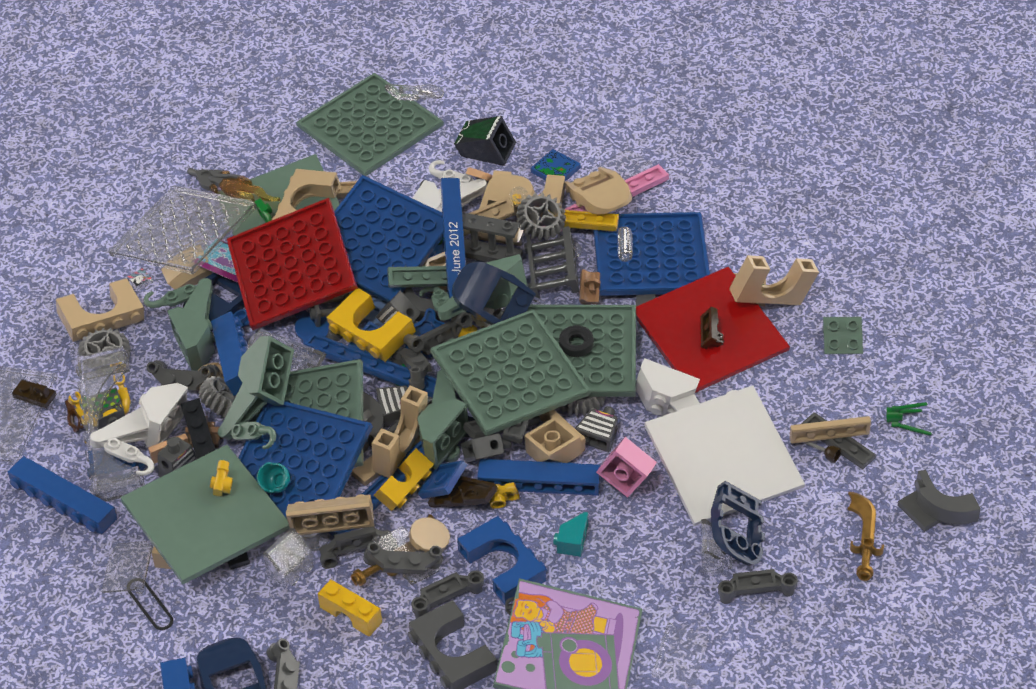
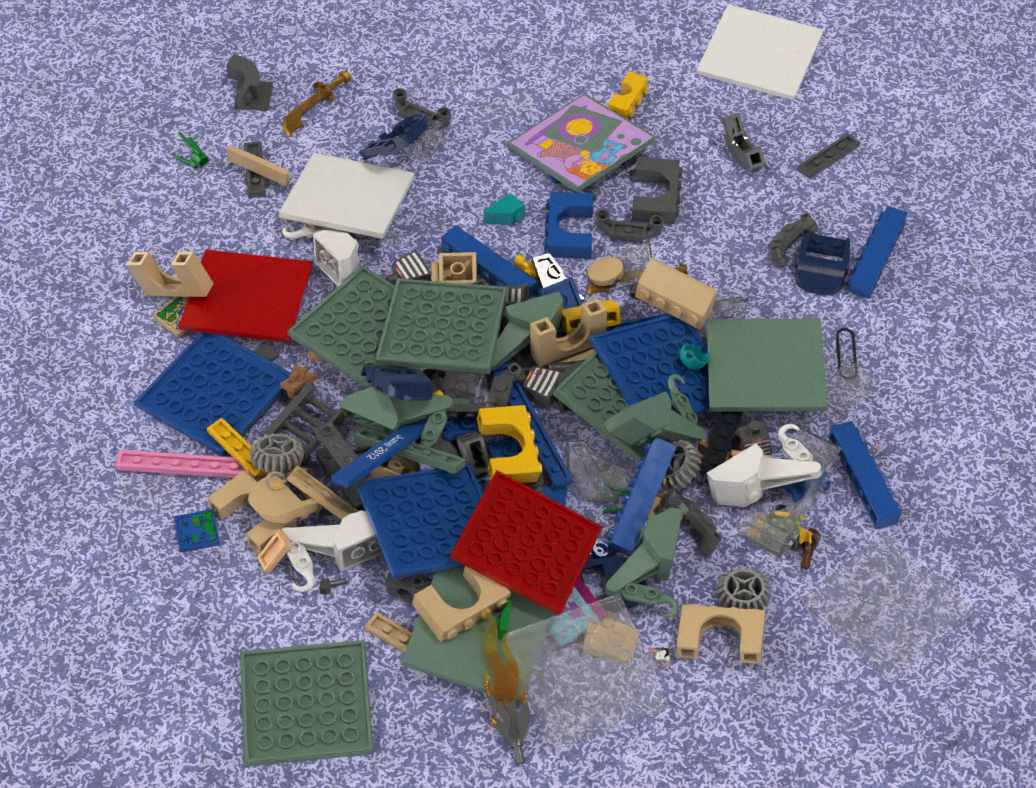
camera: 145 degrees left, 5 degrees up
(34, 393) = (833, 585): dark brown hinge -> none
(221, 483) = (737, 368): yellow plate -> none
(362, 613) = (701, 244): yellow arch -> none
(403, 561) = (638, 249): dark grey plate -> none
(413, 93) = (222, 697): clear piece -> none
(486, 140) = (231, 593): black slope -> none
(576, 350) = (366, 333): black tyre -> none
(600, 191) = (199, 442): tan slope -> none
(625, 244) = (232, 396): clear piece -> none
(626, 467) = (428, 215): bright pink brick -> none
(709, 332) = (253, 282): dark brown hinge -> none
(831, 453) = (272, 157): dark brown hinge -> none
(842, 335) = (158, 233): sand green hinge -> none

